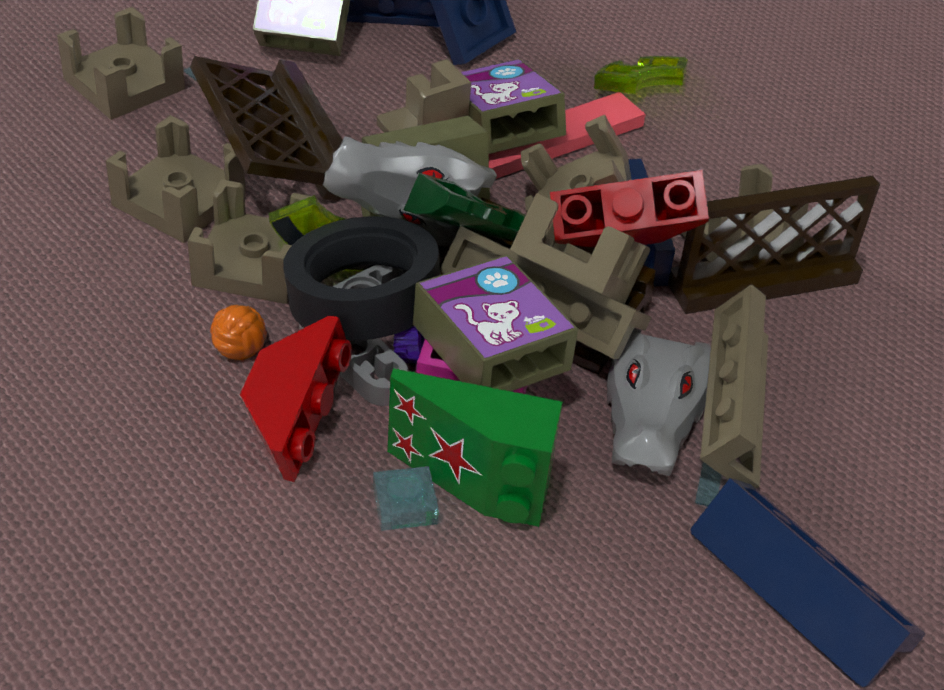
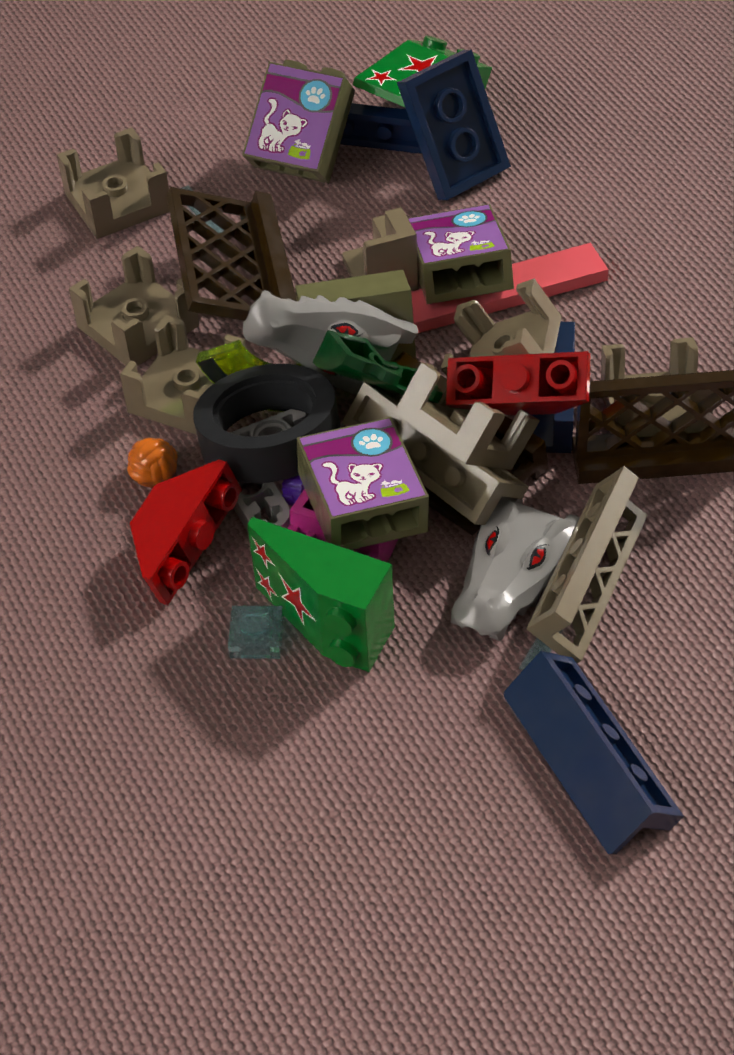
camera: 20 degrees right, 5 degrees up
(648, 72) = (634, 221): clear neon green tile -> none

